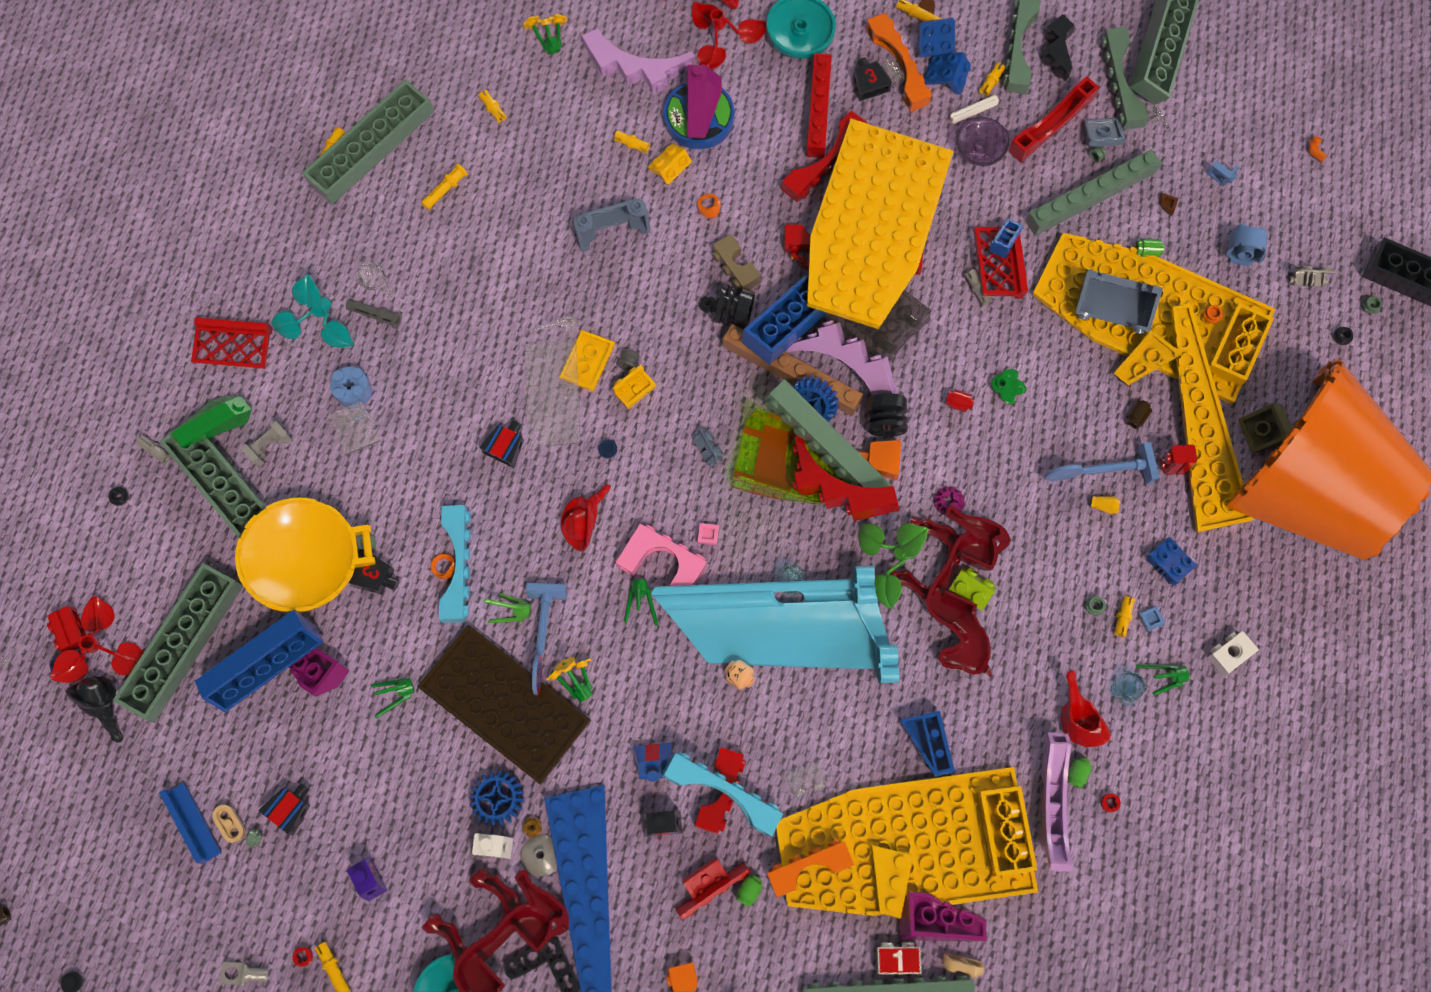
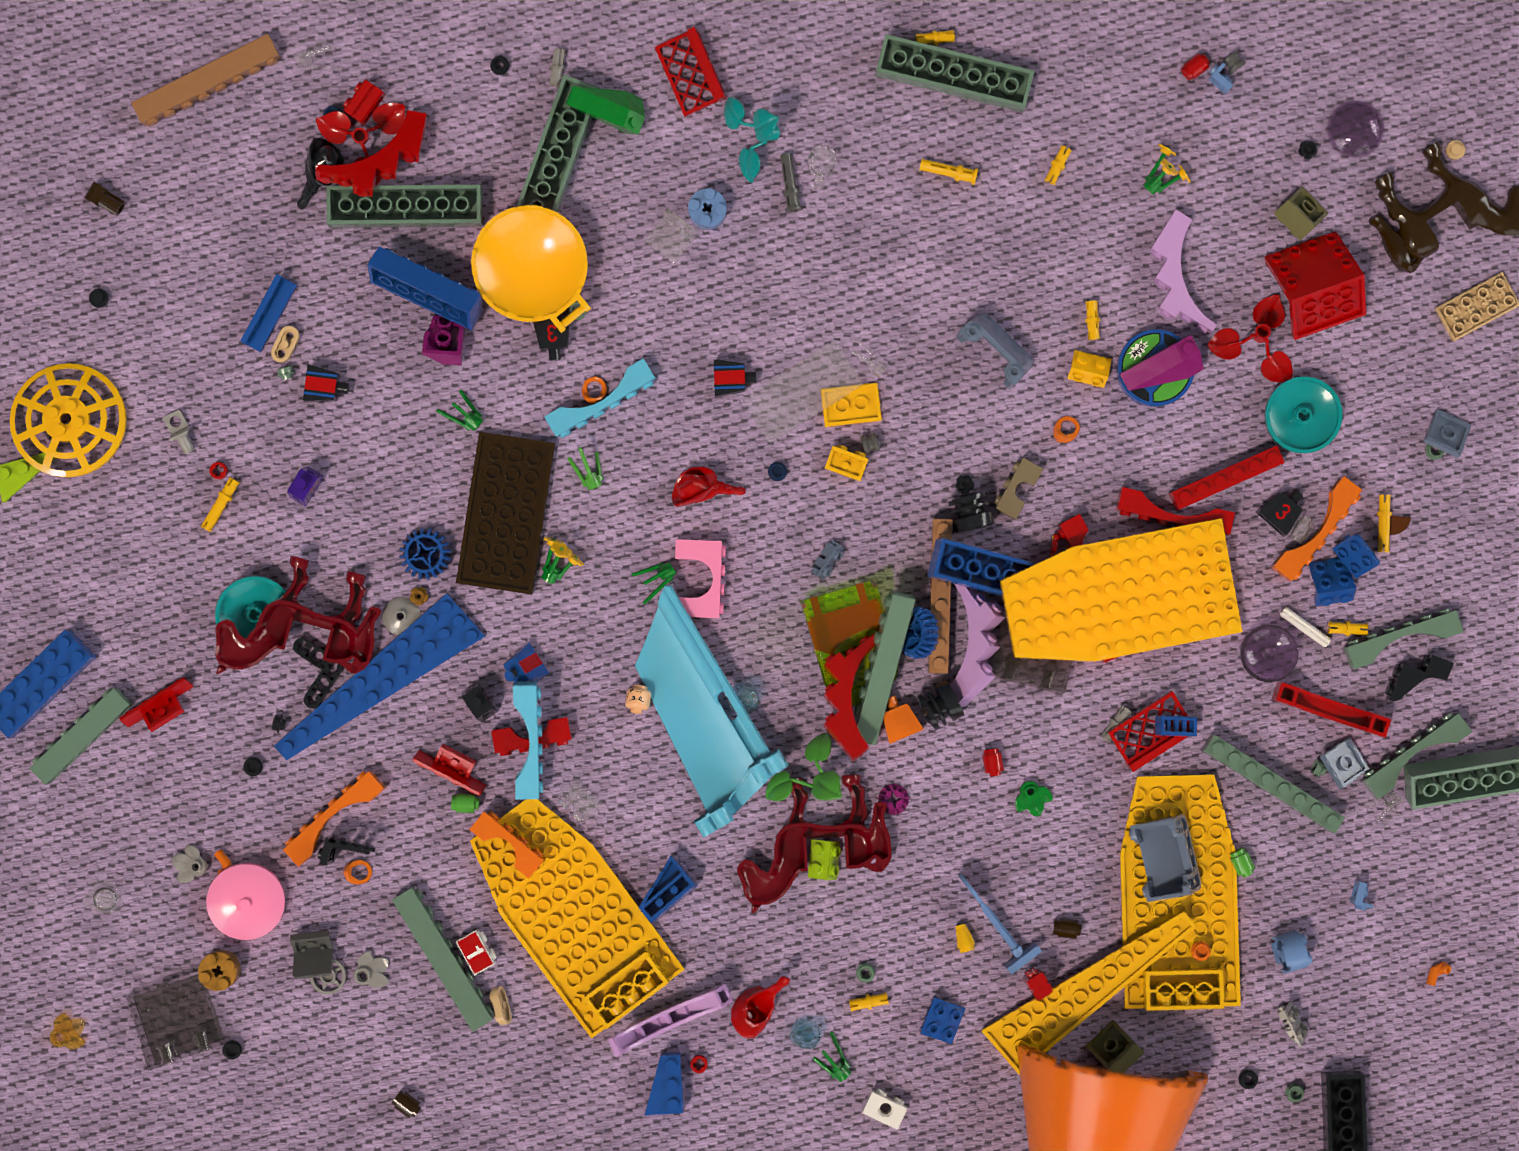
camera: 55 degrees right, 15 degrees up
(127, 638) = (384, 163): none -> red arch
(256, 451) = (603, 163): light grey piece -> none
(492, 846) = (384, 572): white torso -> none
(545, 593) = (617, 494): medium blue piece -> none
(708, 534) = (747, 604): bright pink plate -> none
(892, 877) = (536, 914): yellow wing -> none
(938, 921) = (523, 970): magenta wedge -> none
(1079, 772) = (709, 1026): bright green brick -> none
(1120, 844) = (667, 1088): none -> blue wedge
(1146, 358) = (1123, 910): yellow wing -> none
(1151, 618) = (880, 1026): medium blue tile -> none
(1168, 203) = (1302, 858): reddish brown tile -> none

